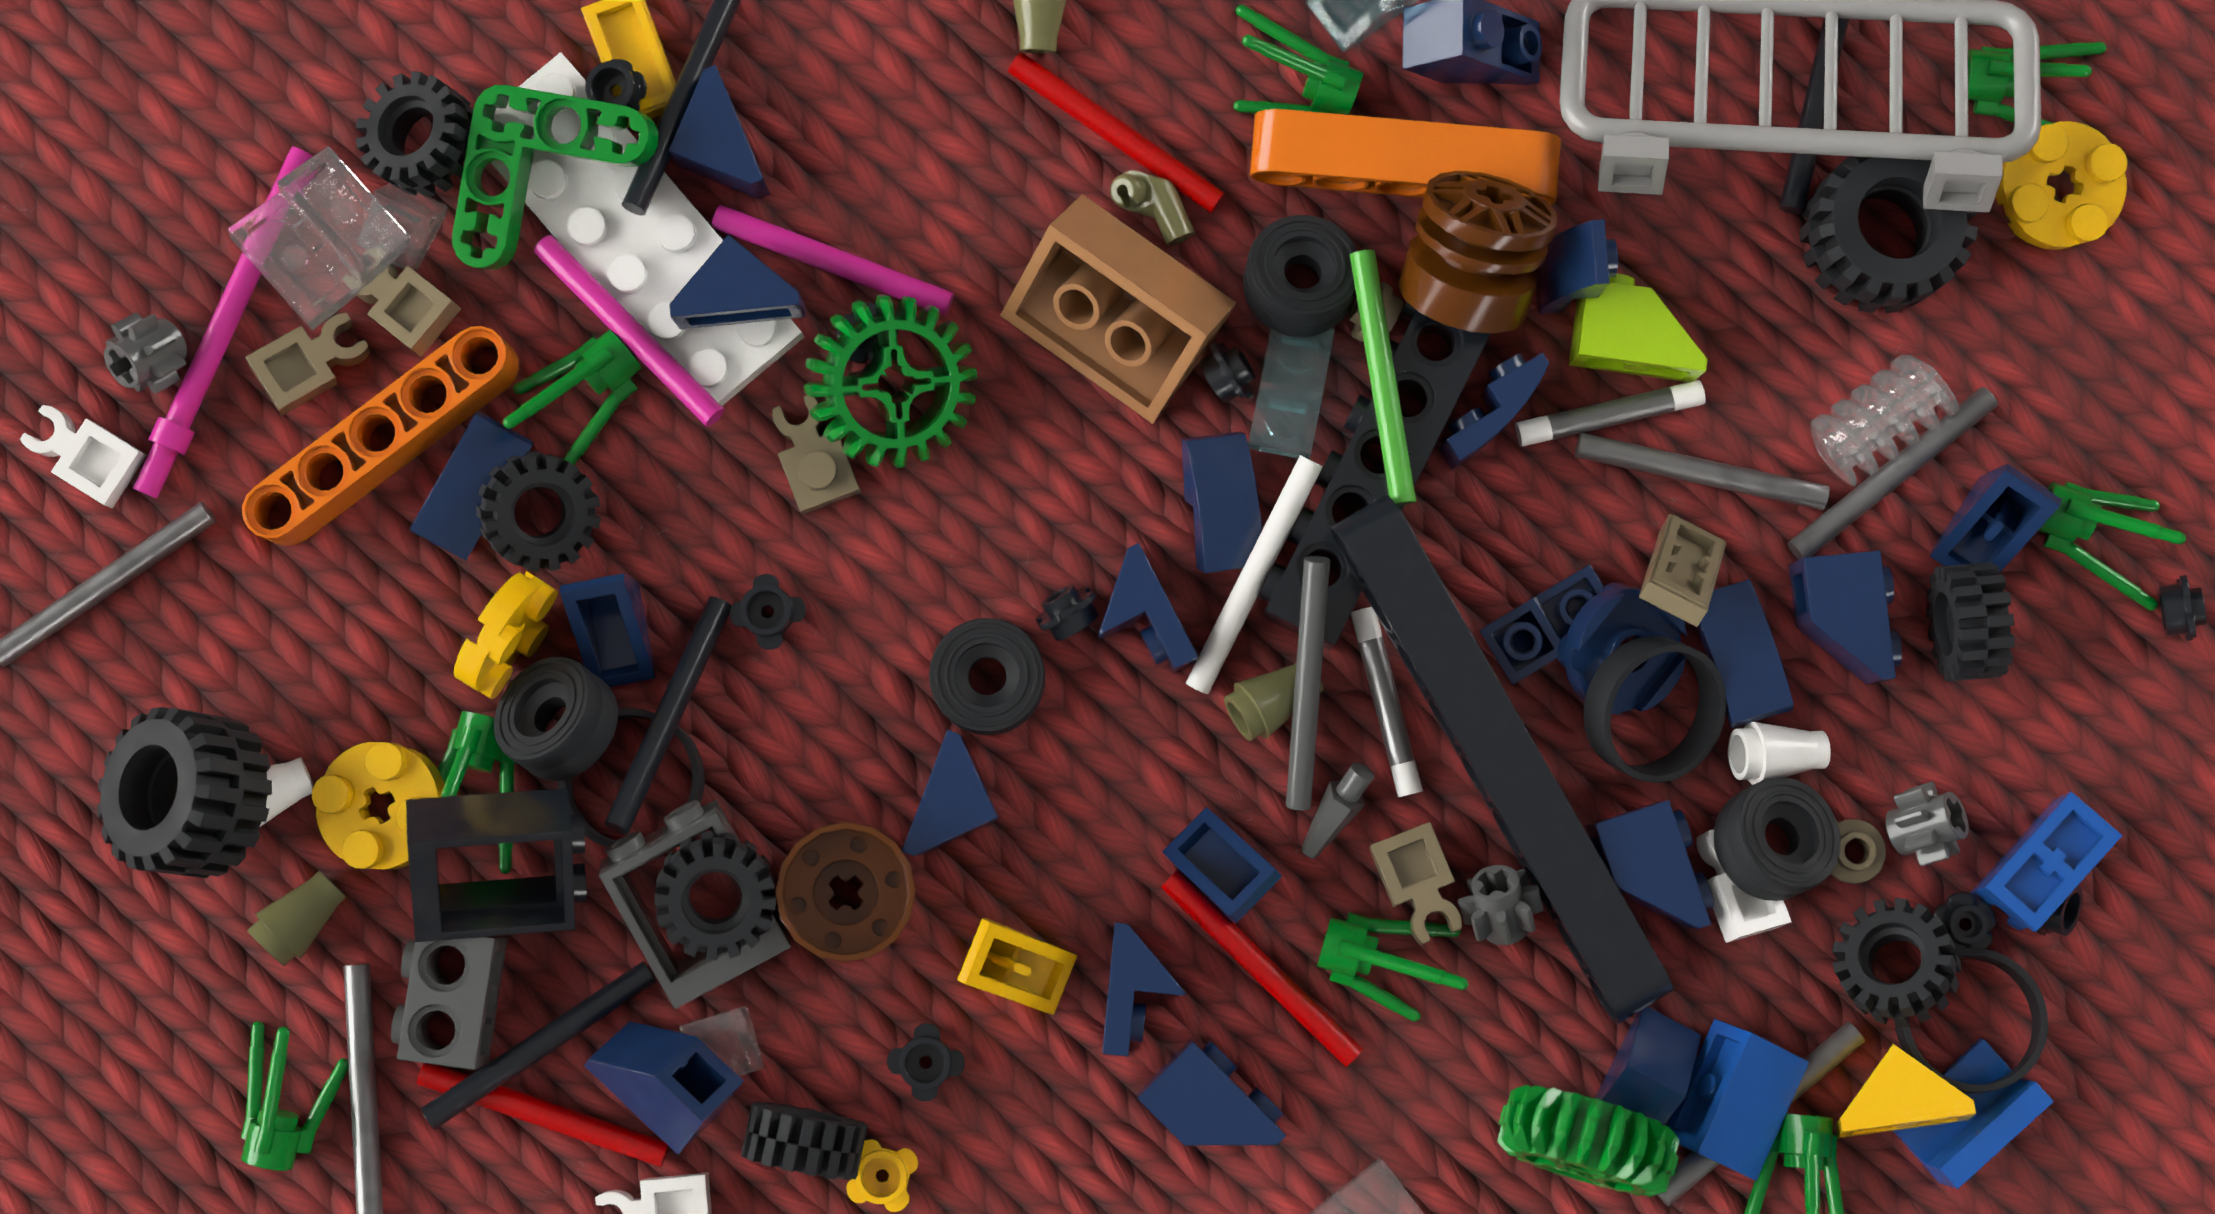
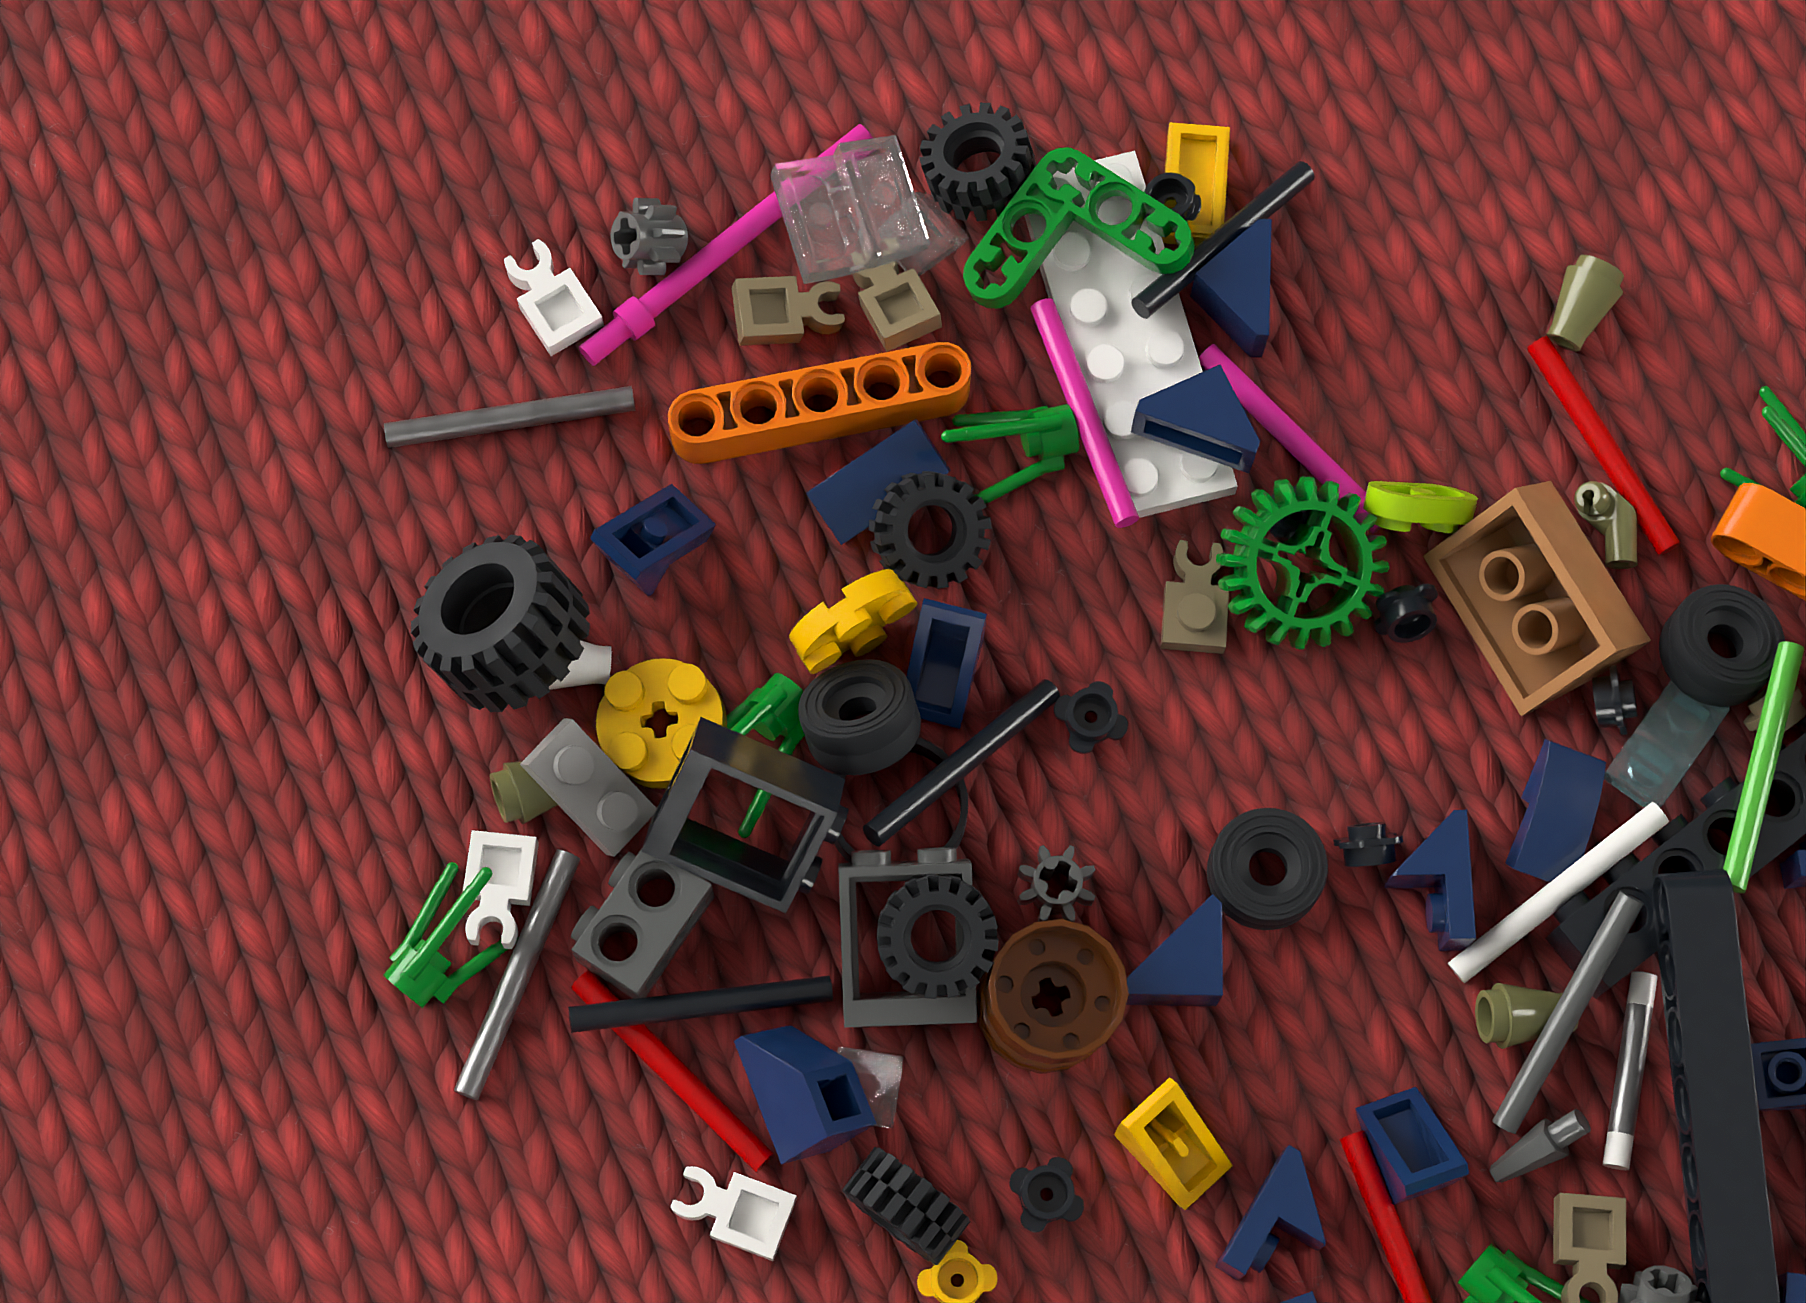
camera: 25 degrees right, 10 degrees down
(286, 639) = (653, 536): none -> dark blue slope
(310, 1013) = (513, 870): none -> white plate
(341, 900) = (588, 787): none -> light grey plate
(818, 796) = (1047, 867): none -> dark grey gear
(977, 270) = (1431, 505): none -> lime plate
(1007, 379) = (1406, 612): none -> black plate

